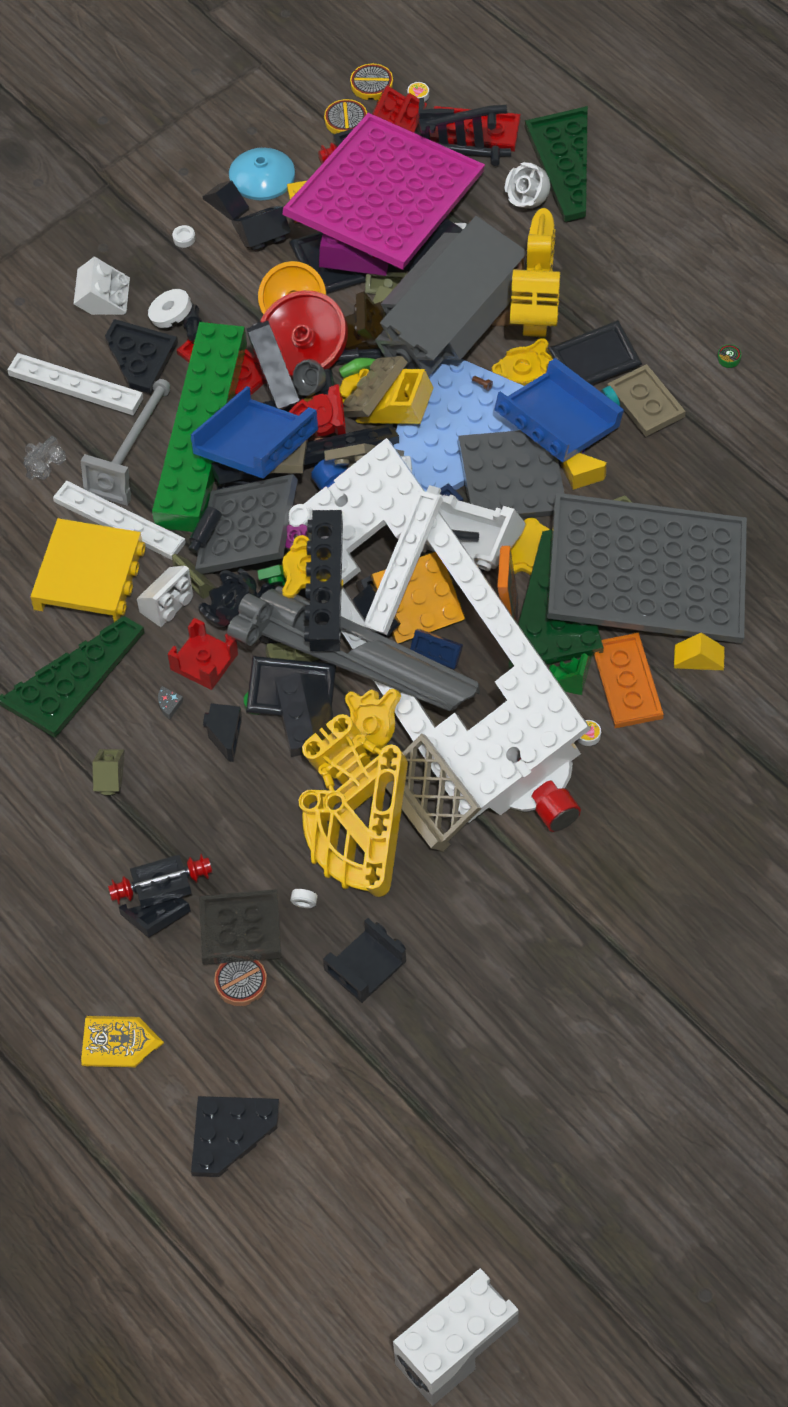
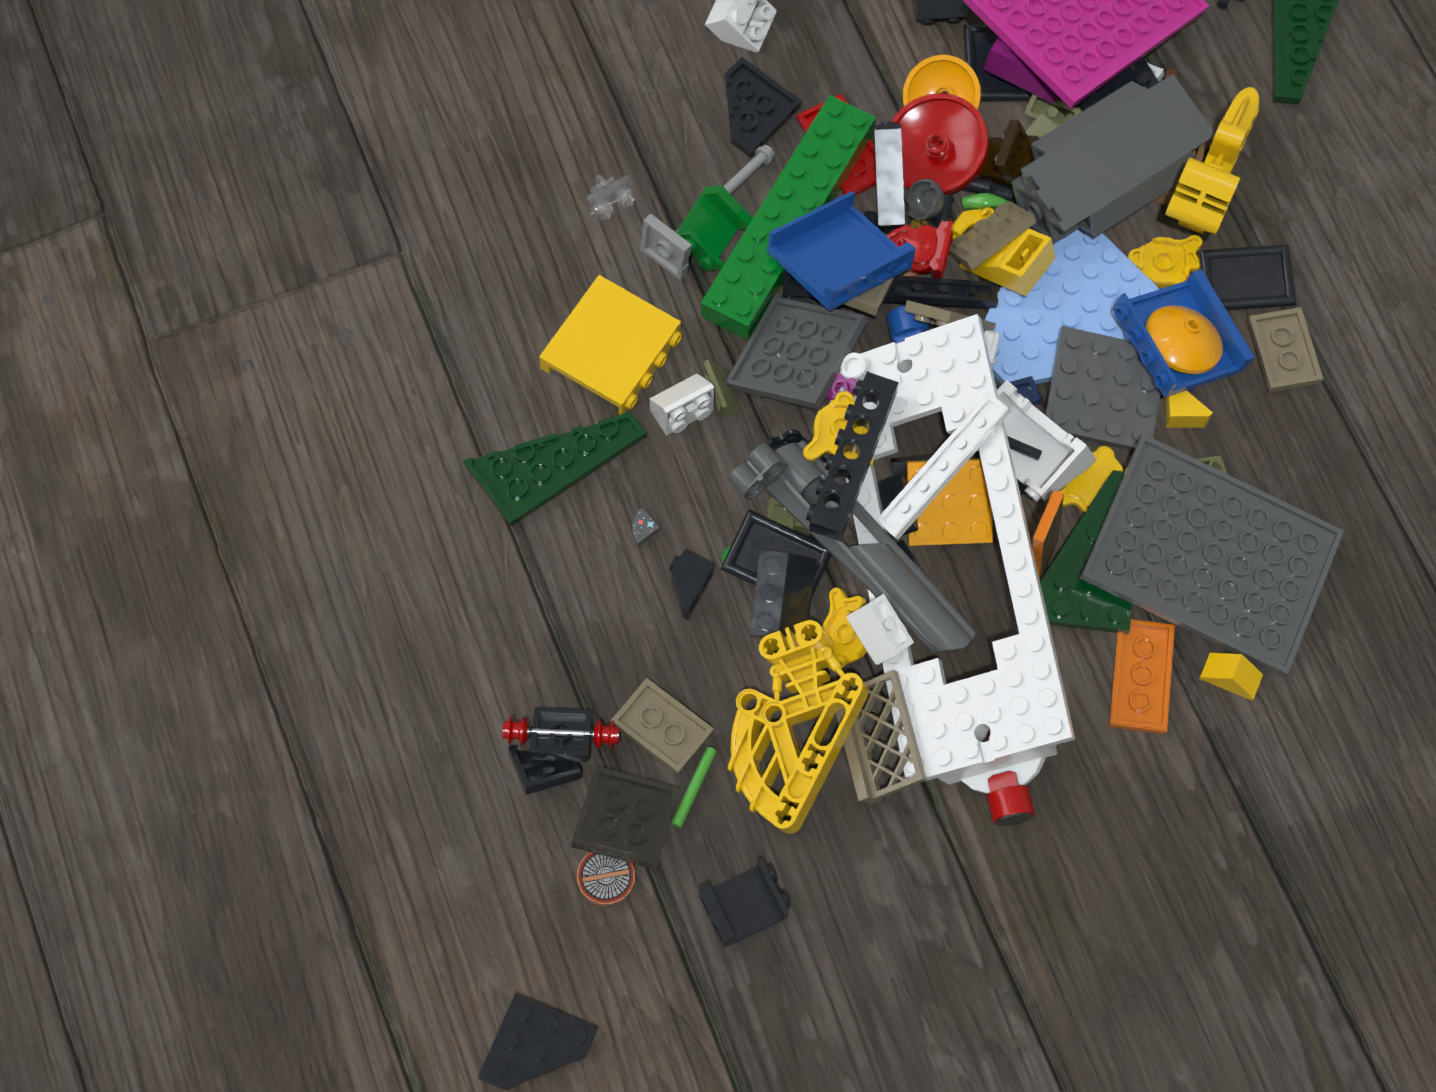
camera: 15 degrees right, 10 degrees up
(75, 384) = (674, 119): white plate -> none
(108, 771) = (551, 585): olive slope -> none
(114, 516) = (665, 294): white tile -> none
(117, 1041) = (454, 898): yellow tile -> none
(139, 450) = (712, 225): none -> green panel
(160, 311) = (812, 52): white tile -> none
(191, 322) = (824, 87): black axle -> none
(203, 656) = (697, 487): red panel -> none
(204, 529) = (749, 341): black cylinder -> none
(227, 597) = (747, 432): black plate -> none
(244, 847) = (662, 726): none -> dark tan plate
(273, 575) = (801, 424): green plate -> none
(289, 880) = (694, 787): none -> bright green bar
(303, 898) = (704, 808): white tile -> none
(398, 706) = (880, 629): none -> white panel
(437, 648) = (948, 567): dark blue plate -> none
(487, 384) = (1116, 273): reddish brown piece -> none
(527, 185) = (1247, 47): white cylinder -> none
(563, 413) = (1185, 339): none -> light orange dish
(572, 674) = (1082, 648): green slope -> none
(592, 736) = (1081, 722): tile -> none
(610, 393) = (1246, 330): teal tile -> none
(729, 356) = (1397, 326): tile -> none

